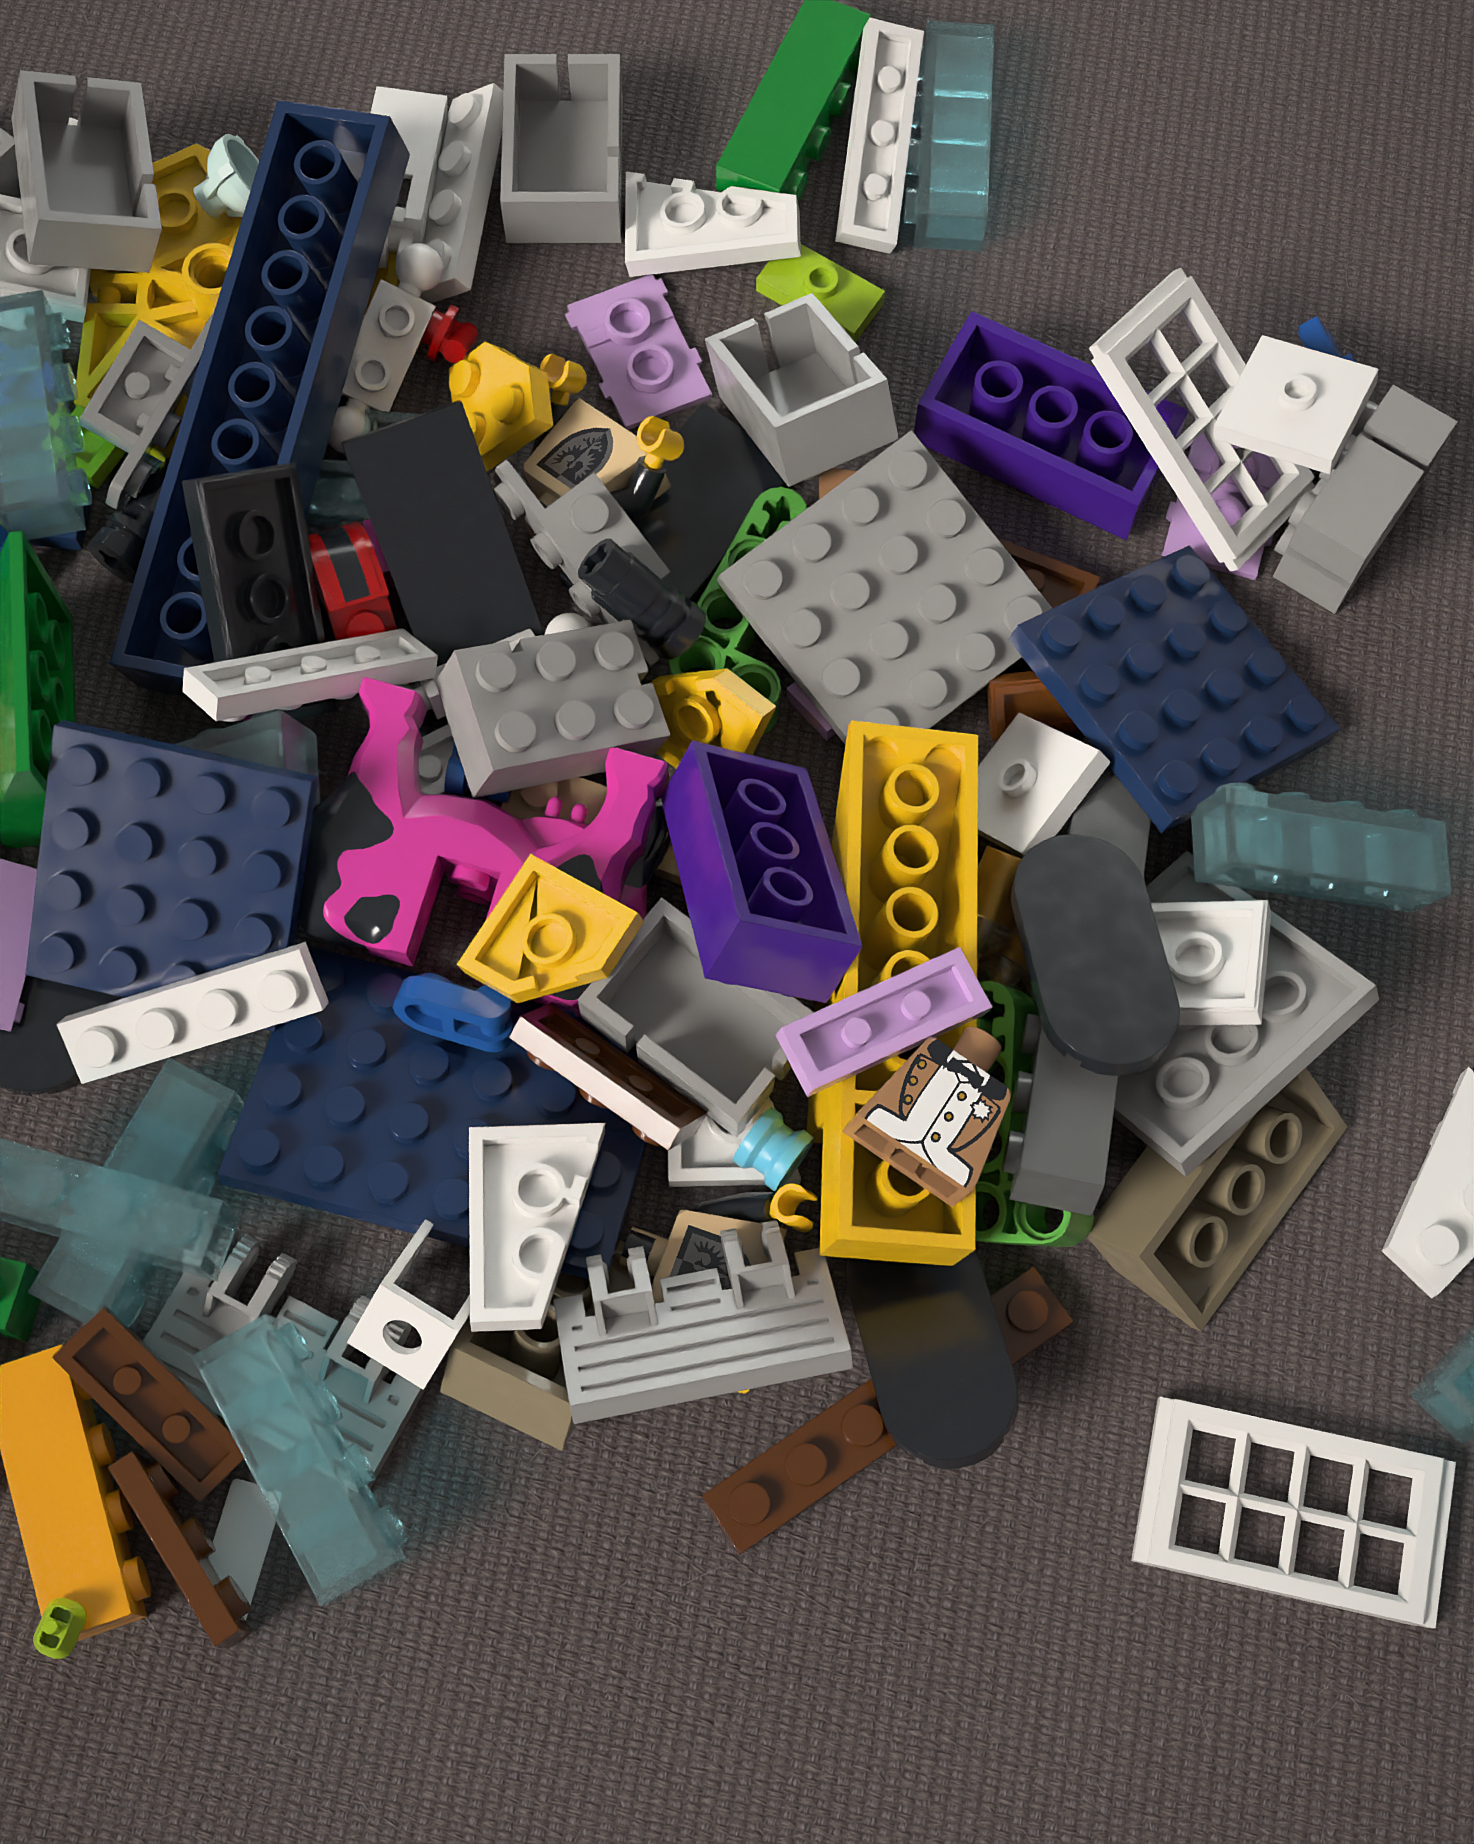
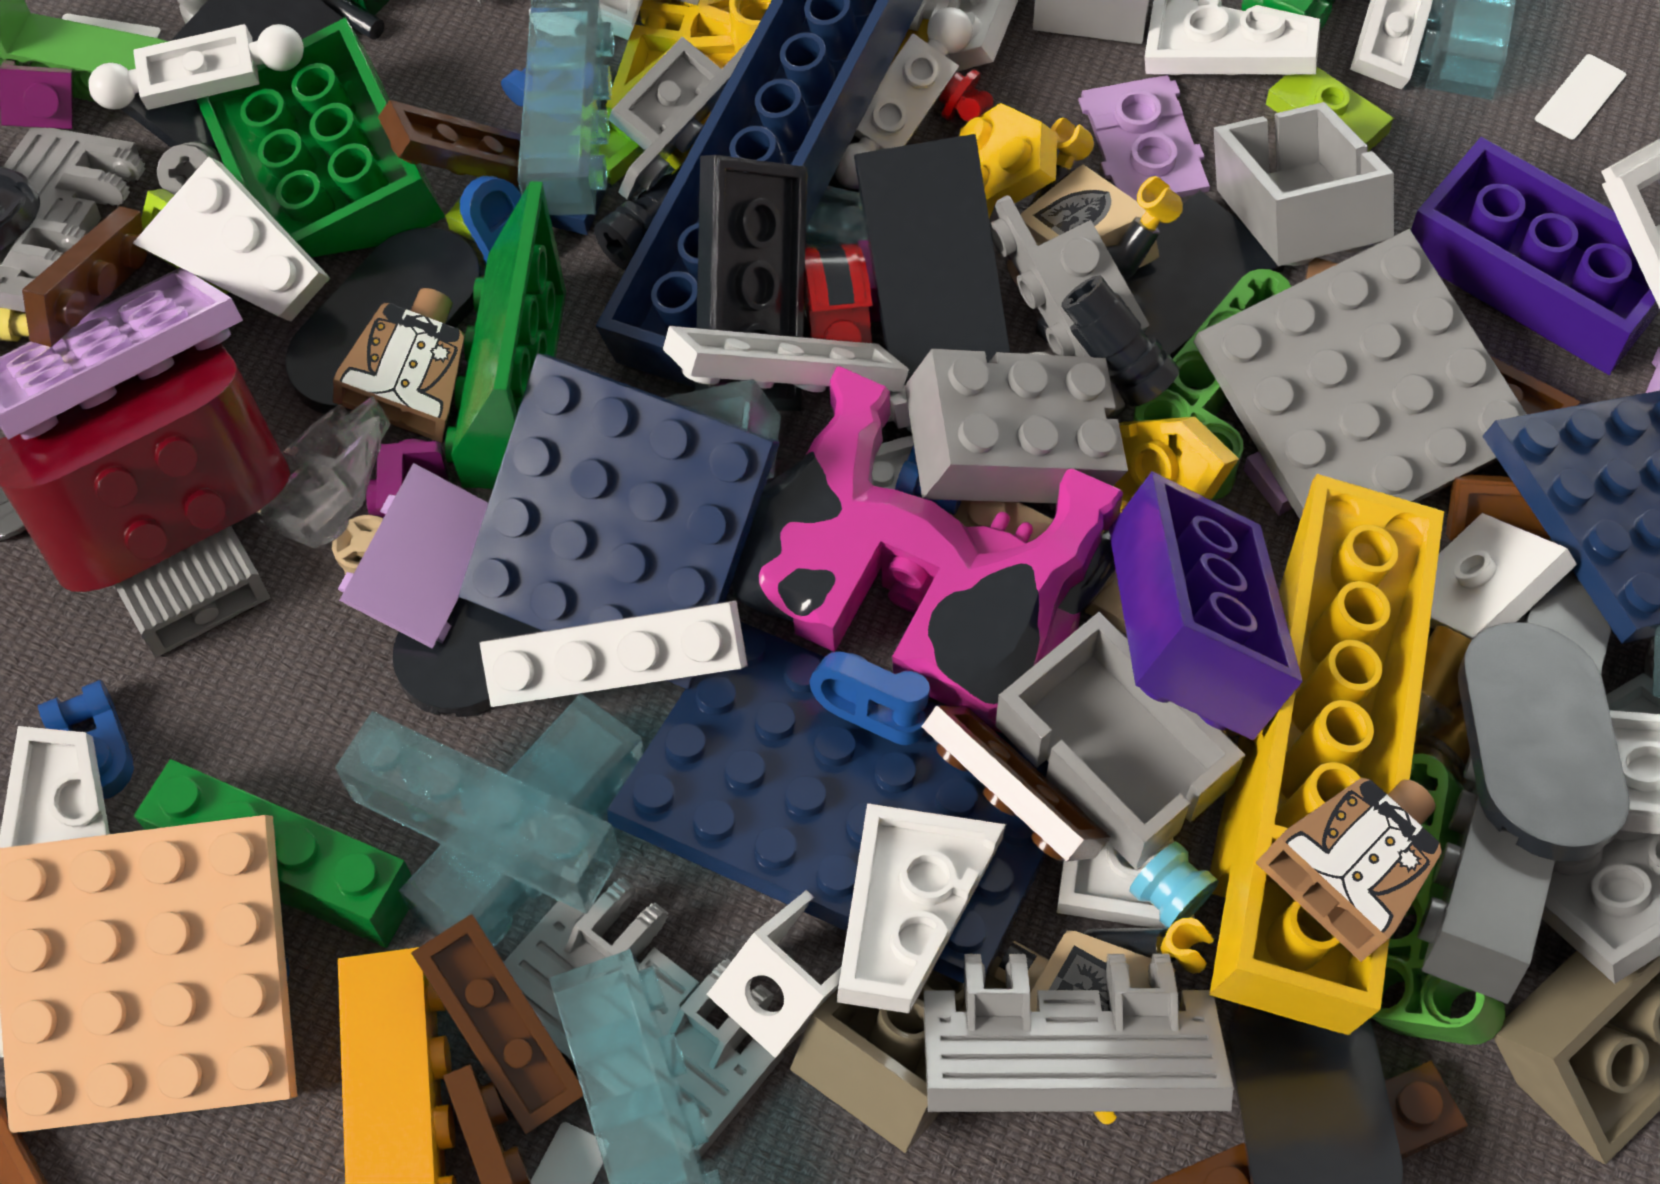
camera: 15 degrees right, 10 degrees down
(549, 935) = (980, 629): yellow plate -> none
(883, 1021) = (1313, 759): lavender plate -> none
(1068, 234) = (1580, 96): none -> white sticker

